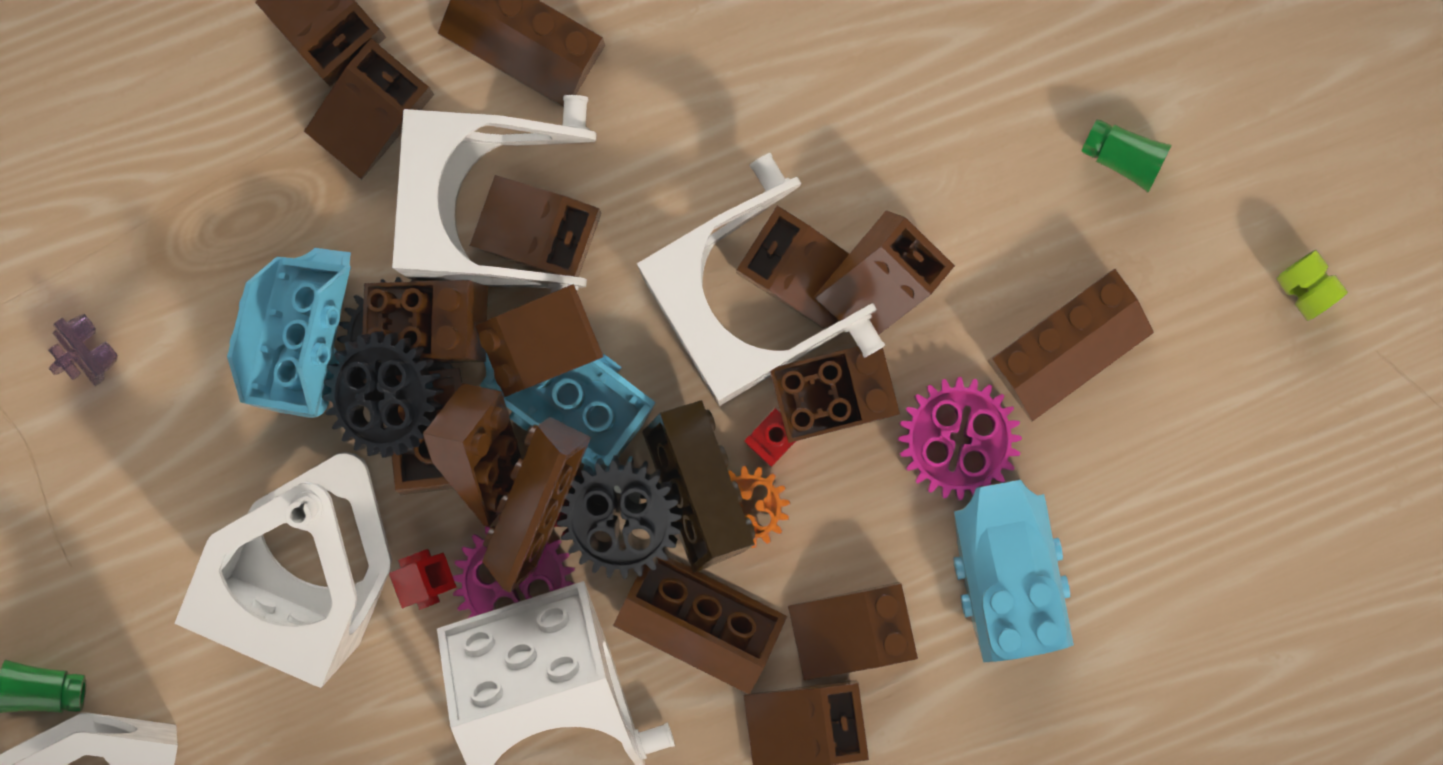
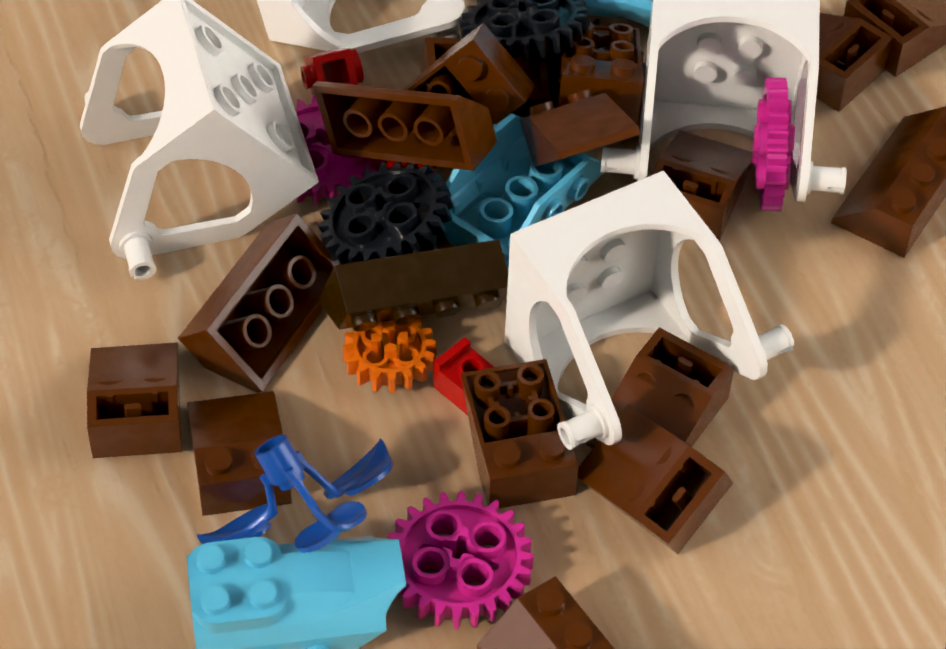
camera: 85 degrees right, 35 degrees down
(520, 159) = (773, 144): none -> dark pink gear
(980, 538) = (284, 469): none -> blue plant

